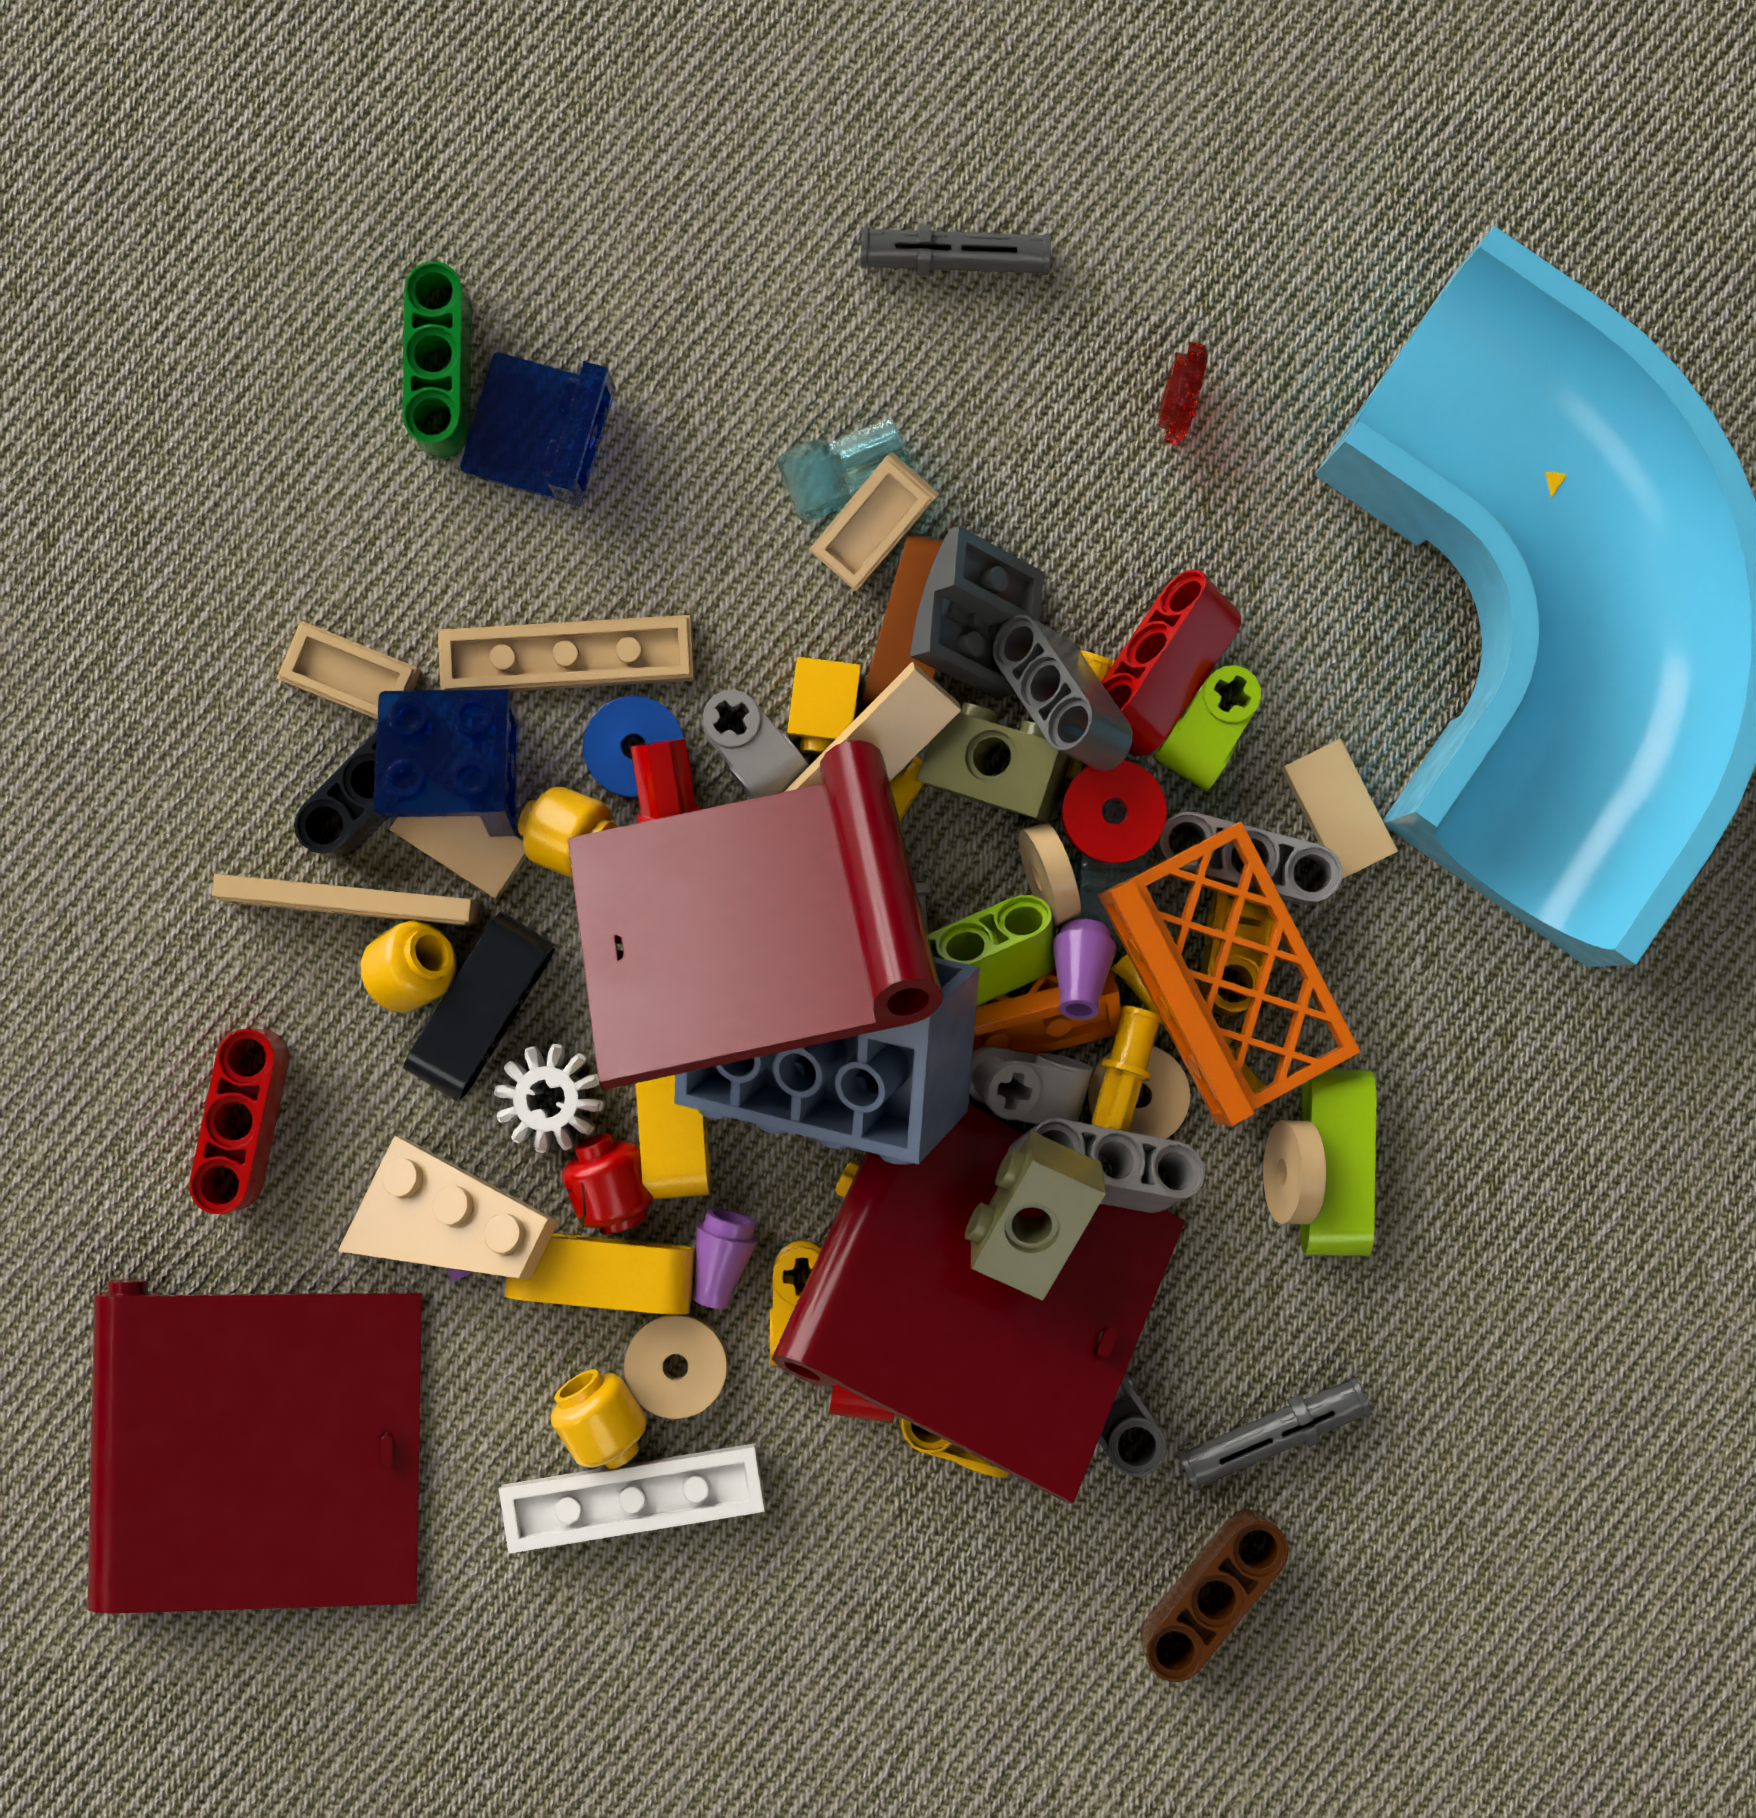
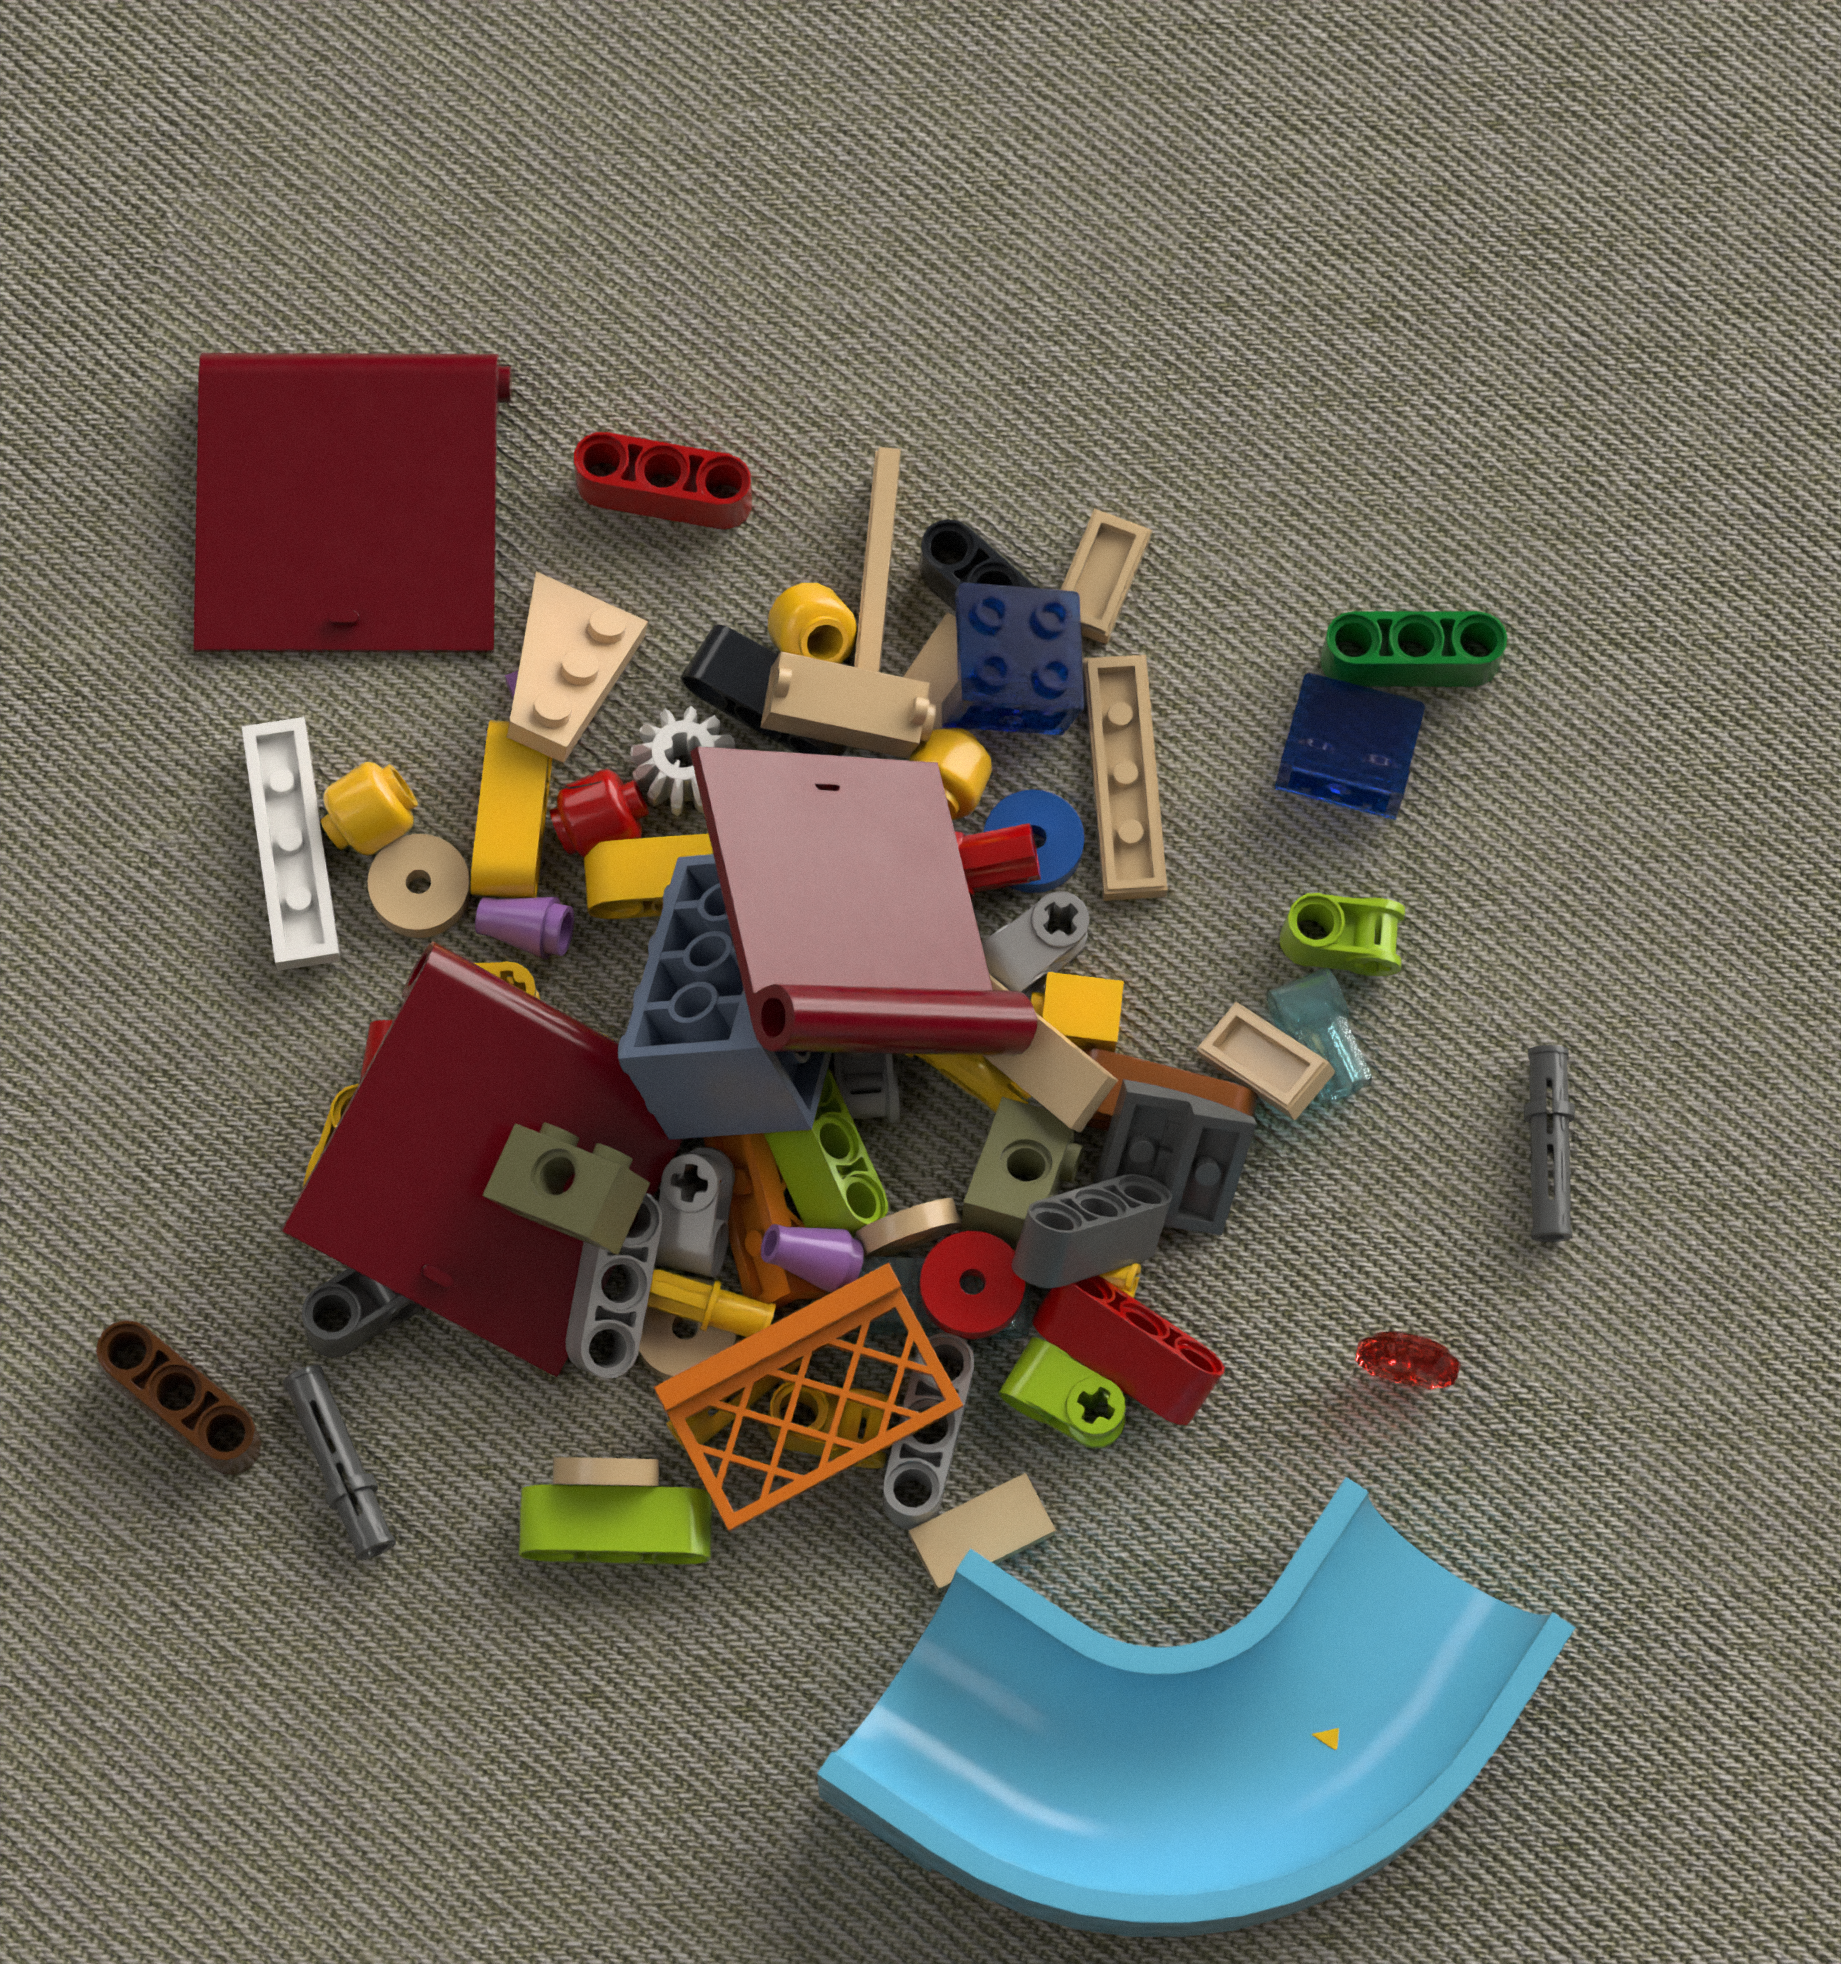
camera: 85 degrees right, 15 degrees down
(504, 929) = (847, 705): none -> tan brick
(739, 430) = (1349, 932): none -> lime piece

